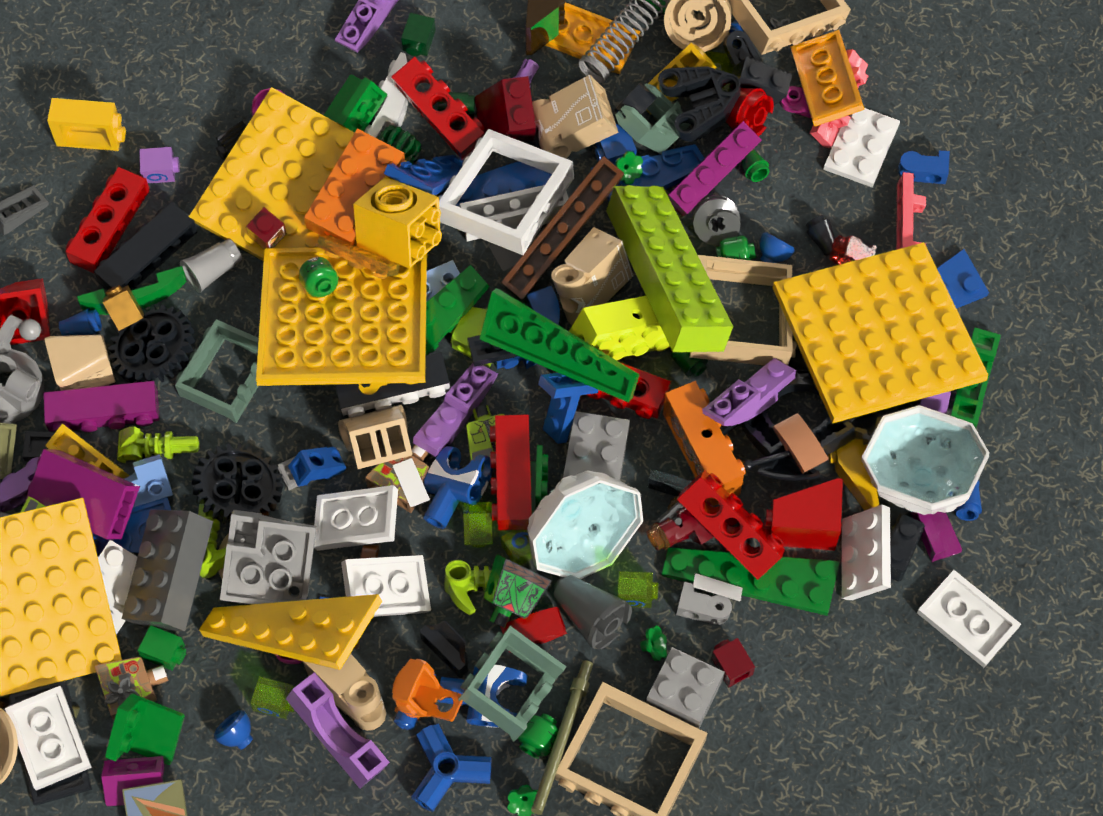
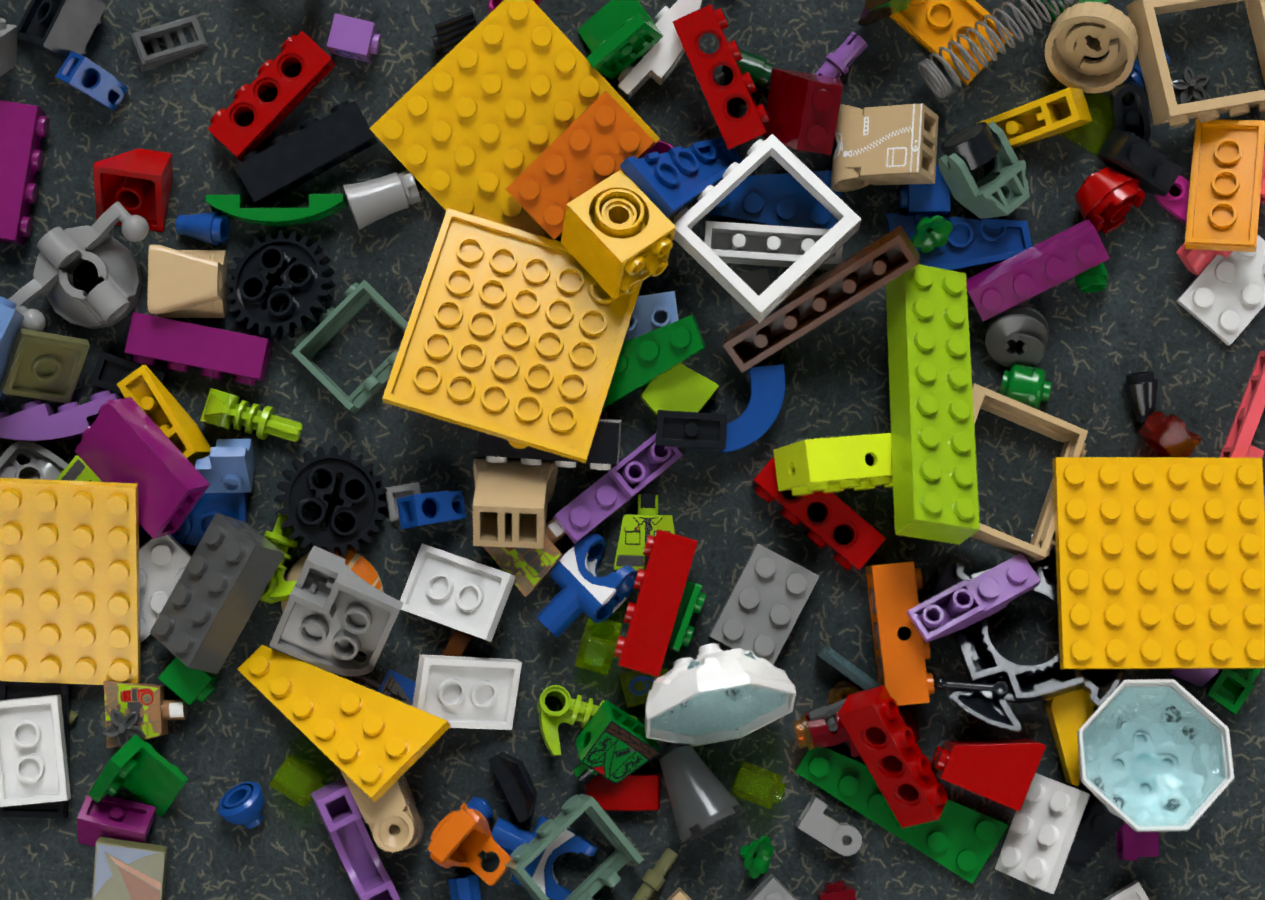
camera: 20 degrees right, 20 degrees up
(122, 307) = (255, 231): brick -> none
(266, 229) = (456, 184): dark red brick -> none
(318, 277) = (498, 280): green head -> none
(358, 257) = (556, 263): clear yellow plate -> none
(402, 141) = (656, 109): dark green gear -> none
(411, 482) = (534, 574): white sticker -> none
(540, 340) = (742, 454): green wing -> none
(563, 404) = (749, 524): blue bracket -> none
(591, 273) = (835, 369): tan piece -> none
(708, 100) = (1056, 144): black connector -> none
(717, 587) = (853, 815): white sticker -> none
(774, 249) = (1076, 396): blue brick -> none
(801, 443) = (1011, 686): nougat slope -> none

